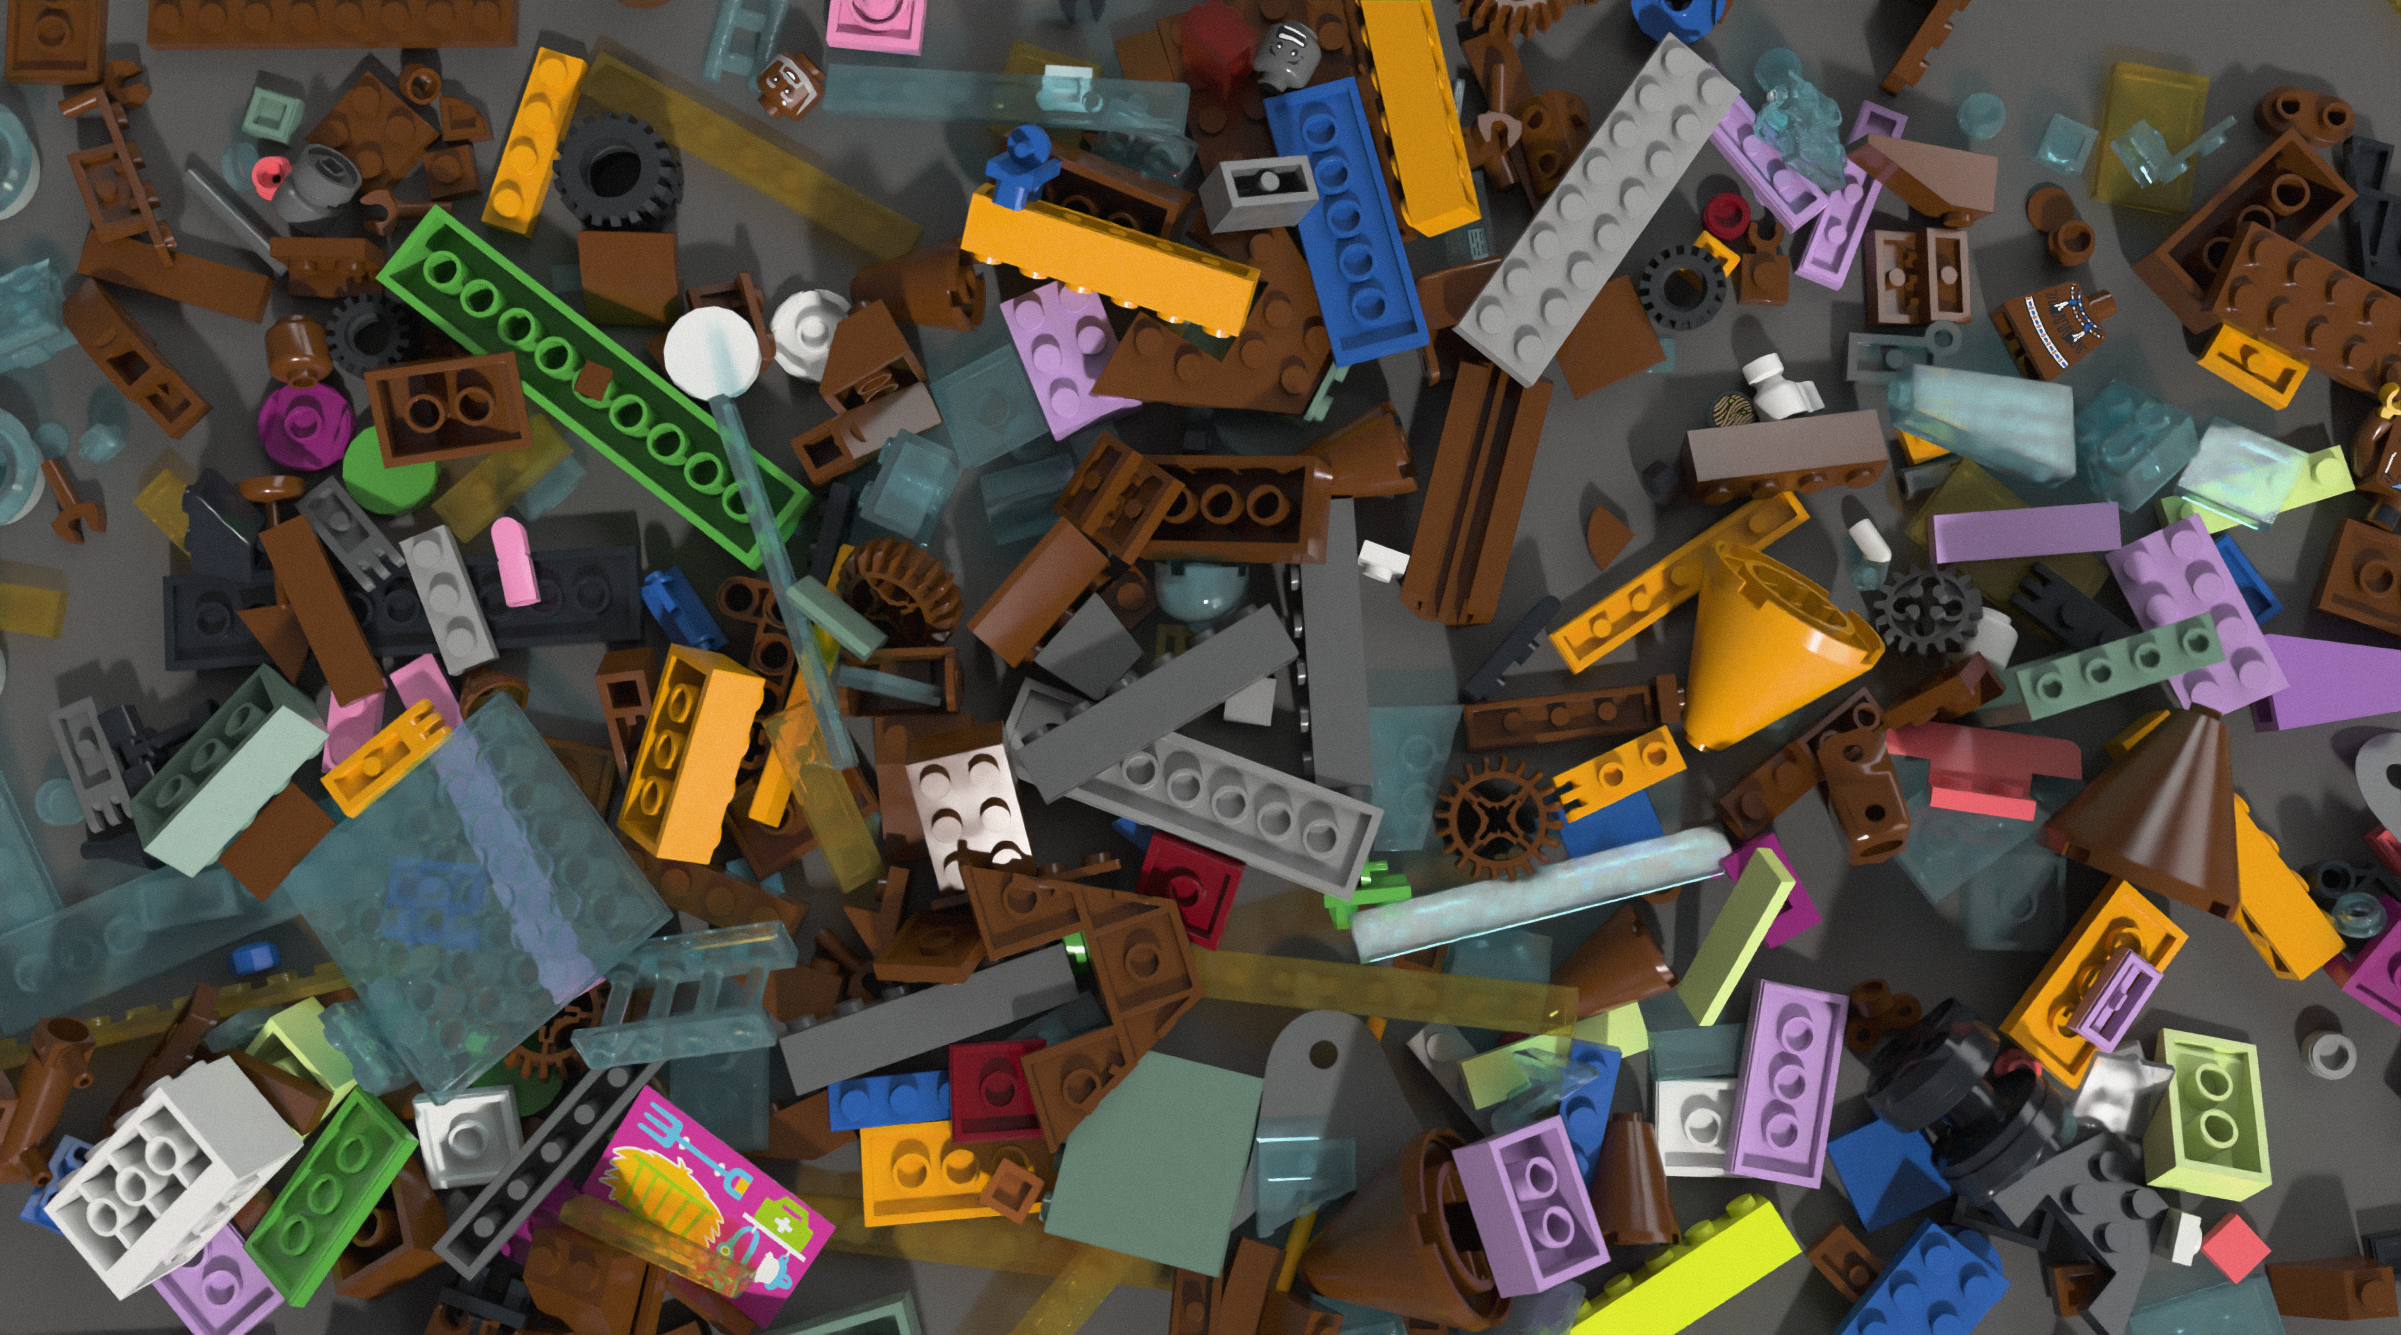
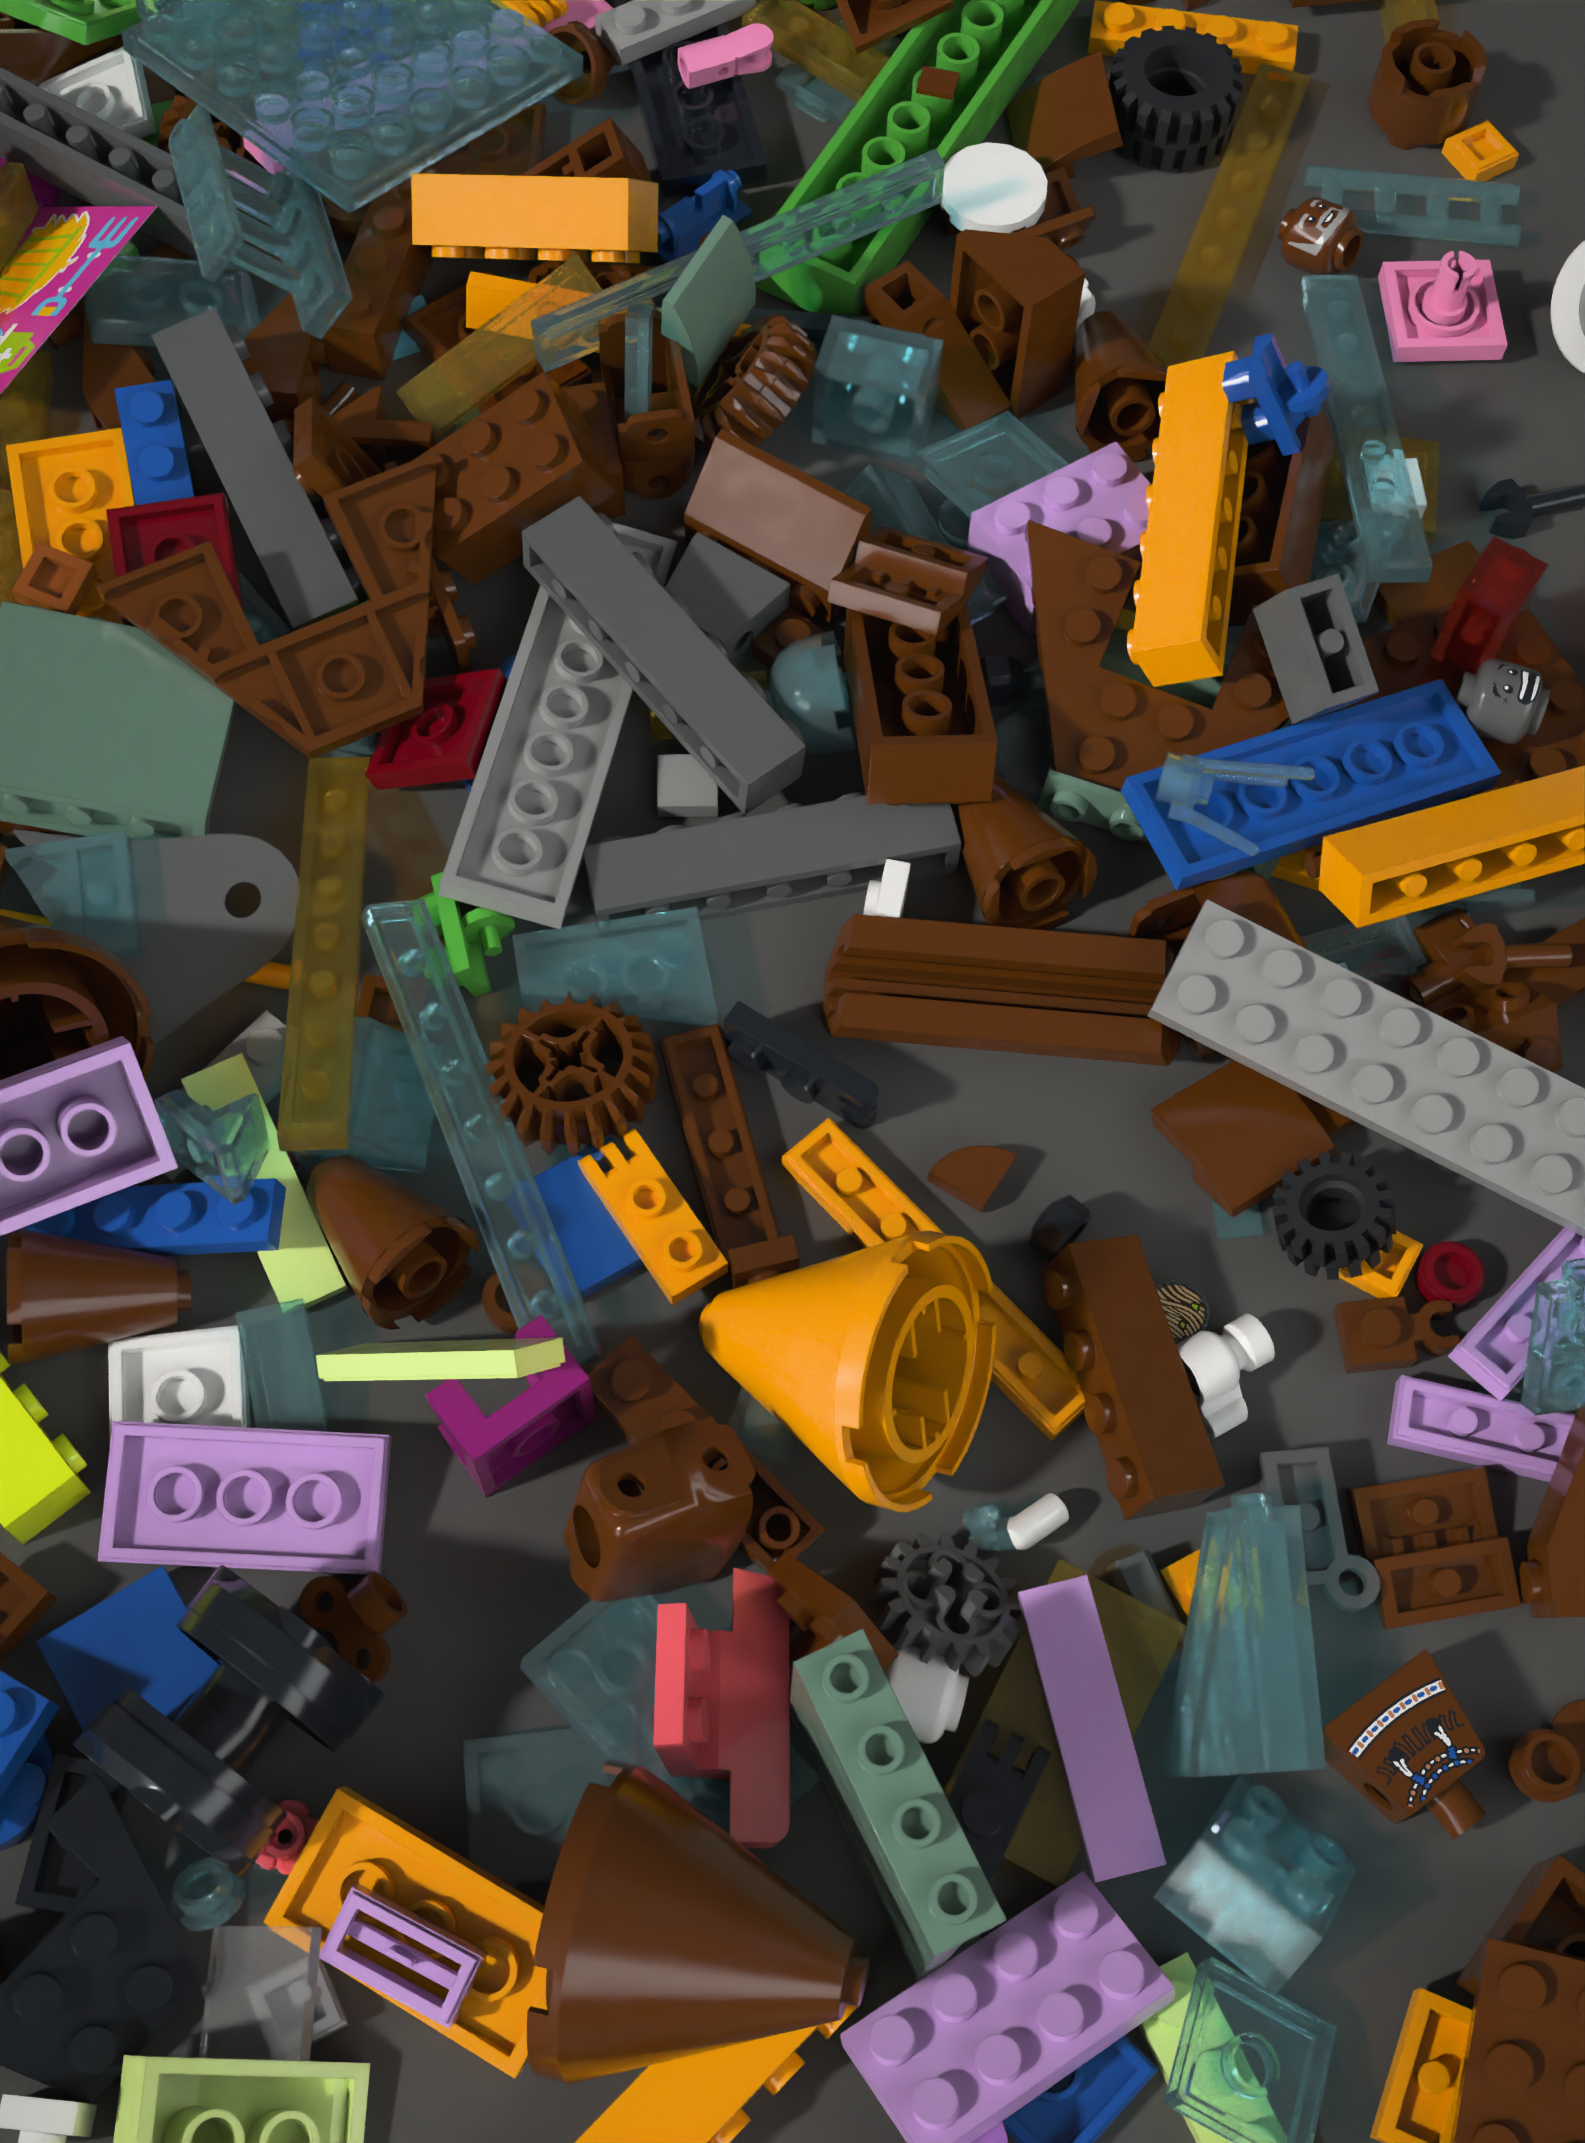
camera: 75 degrees right, 20 degrees down
(1357, 318) = (1190, 781): none -> clear light blue plant

